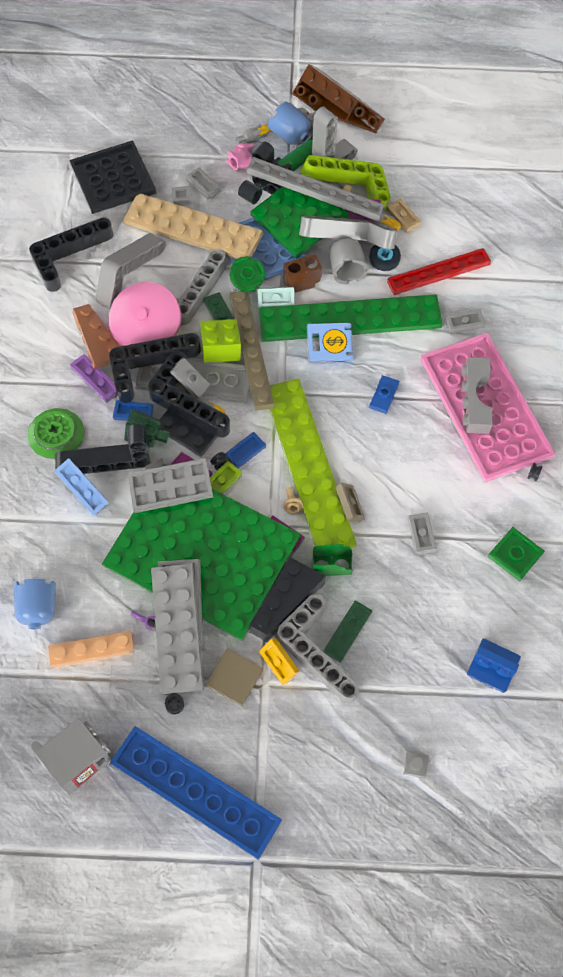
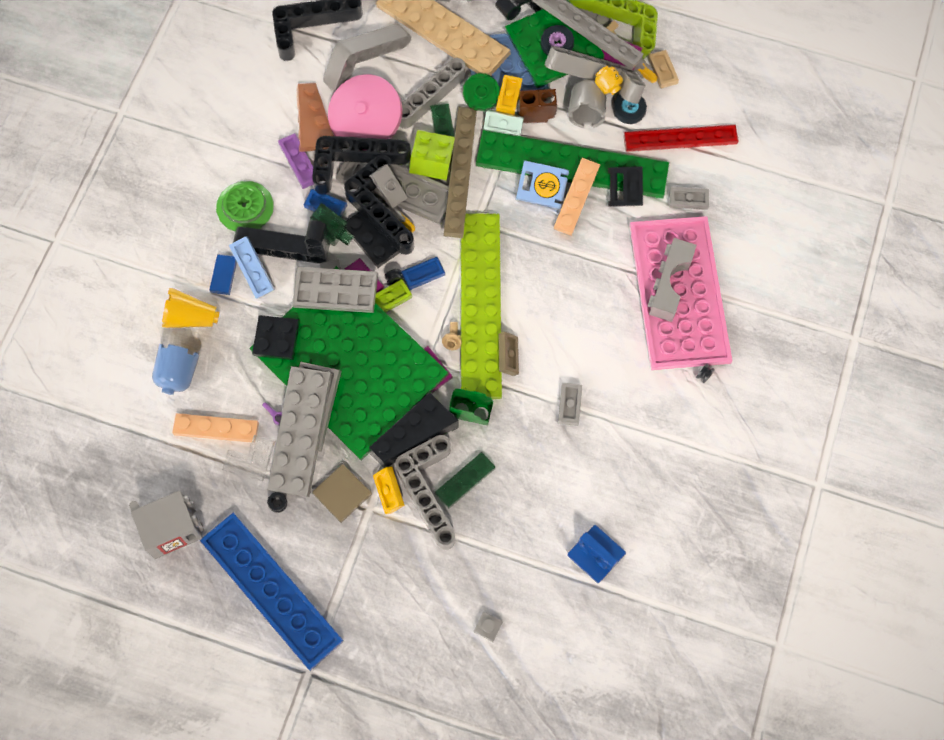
camera: 15 degrees right, 5 degrees up
(31, 544) = (187, 311): none -> yellow cone
(54, 501) = (223, 274): none -> blue tile
(125, 546) = (276, 337): none -> black plate
(274, 270) = (509, 94): none -> yellow plate
(299, 206) = (557, 33): none -> black bush
(362, 234) = (608, 80): none -> yellow head
(364, 345) = (576, 196): none -> light nougat plate
(384, 394) = (580, 253): blue plate -> none
(412, 322) = (631, 186): none -> black plate
(516, 554) = (657, 450): green plate -> none

